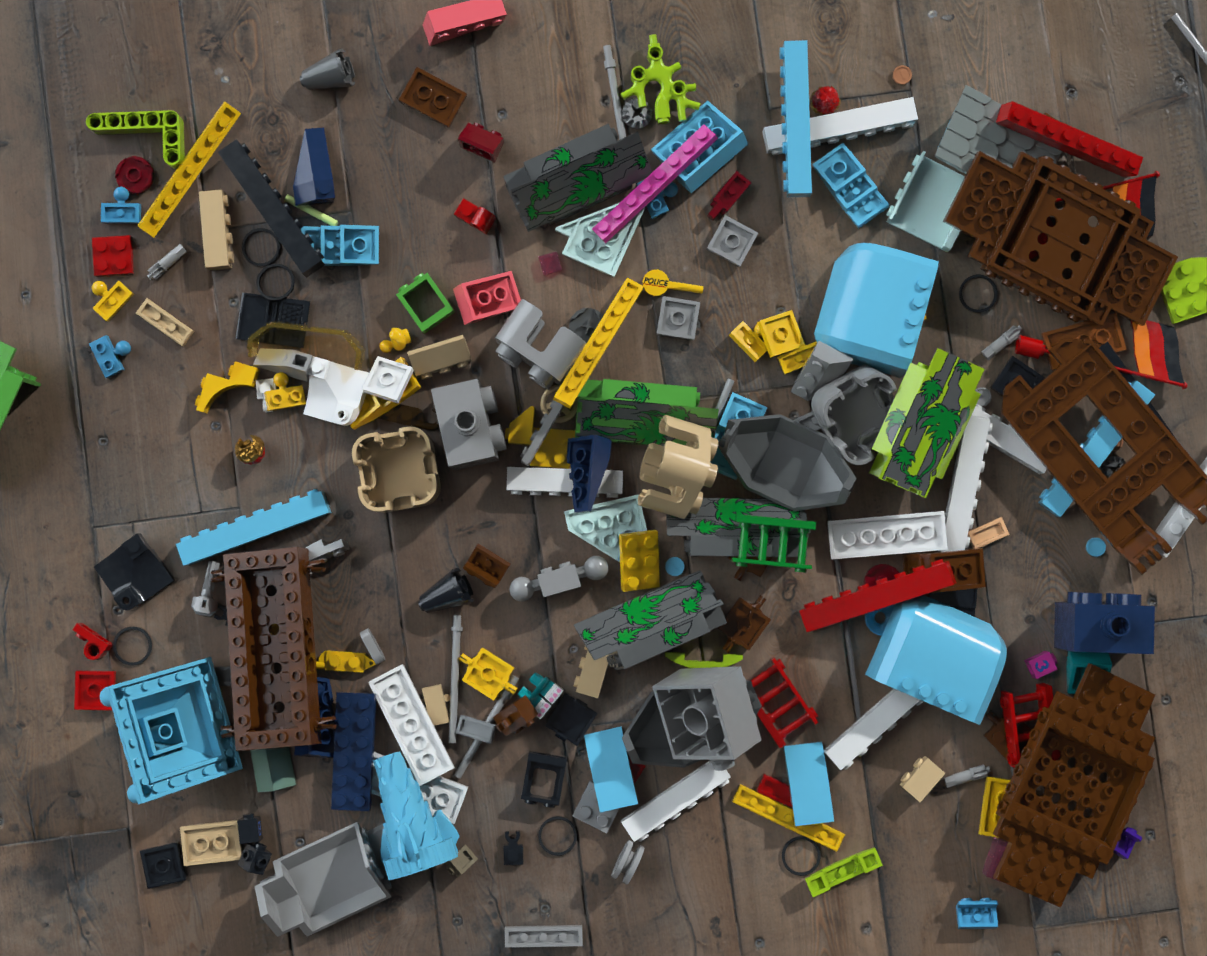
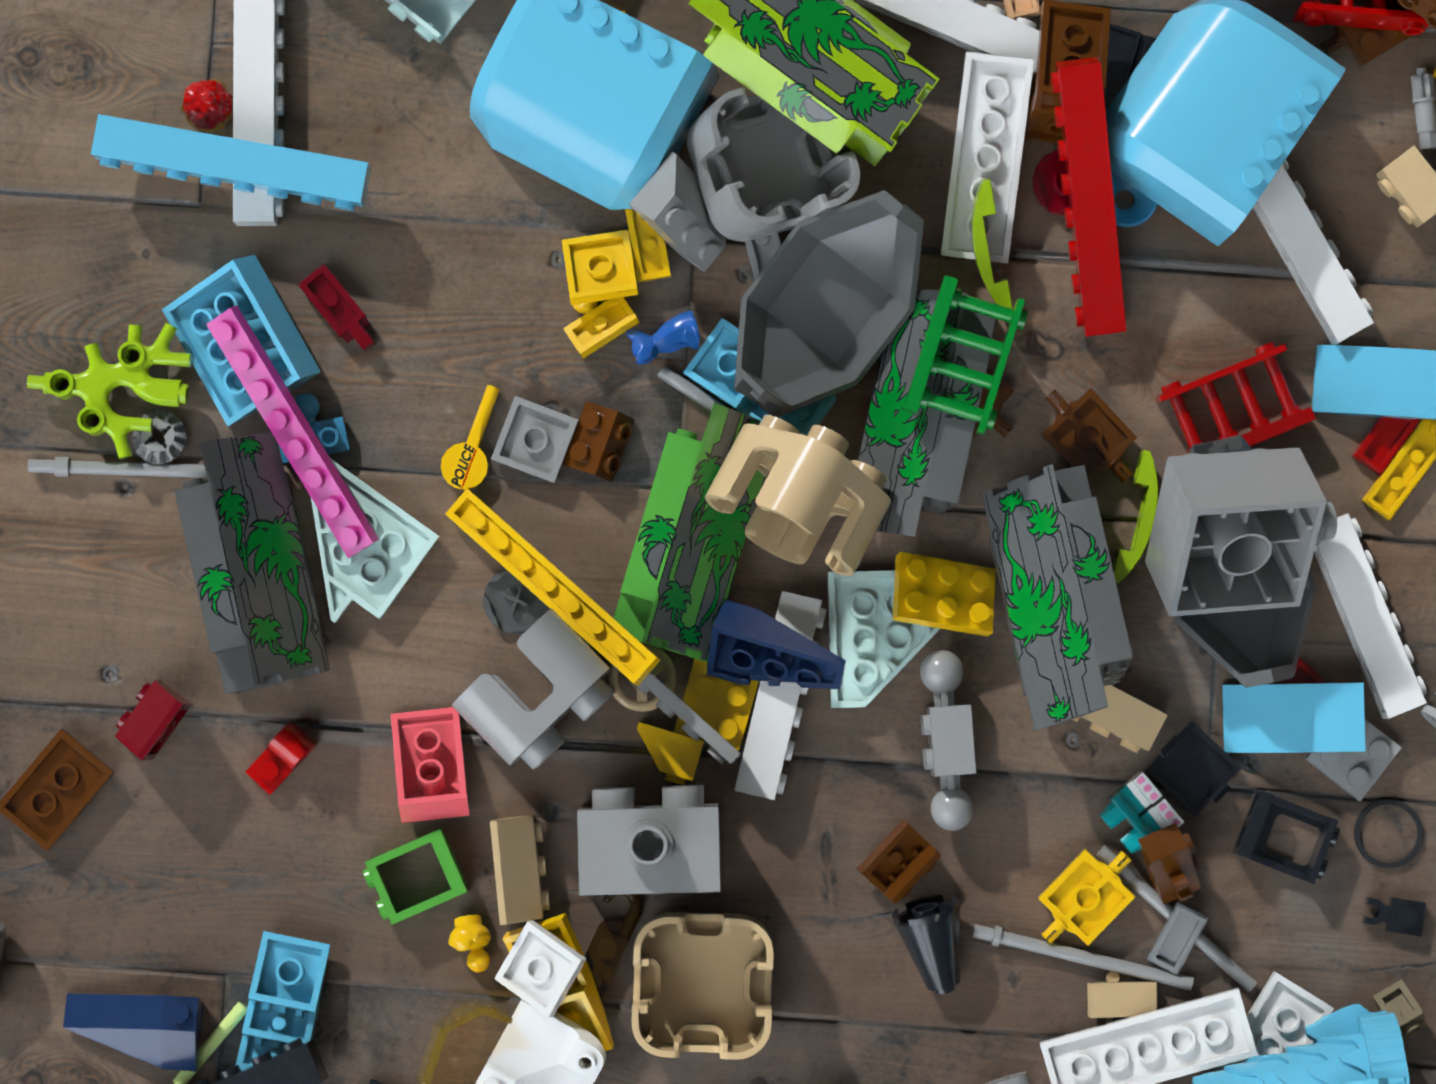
camera: 80 degrees left, 0 degrees up
(550, 263) = (391, 643): clear pink tile -> none
(674, 566) = (964, 535): medium azure piece -> none
(684, 354) = (599, 441): none -> reddish brown bracket
(732, 241) = (419, 317): light grey plate -> none
(752, 382) = (671, 336): none -> blue animal
(850, 185) = (364, 92): medium azure slope -> none
(859, 538) = (985, 206): none -> lime slope

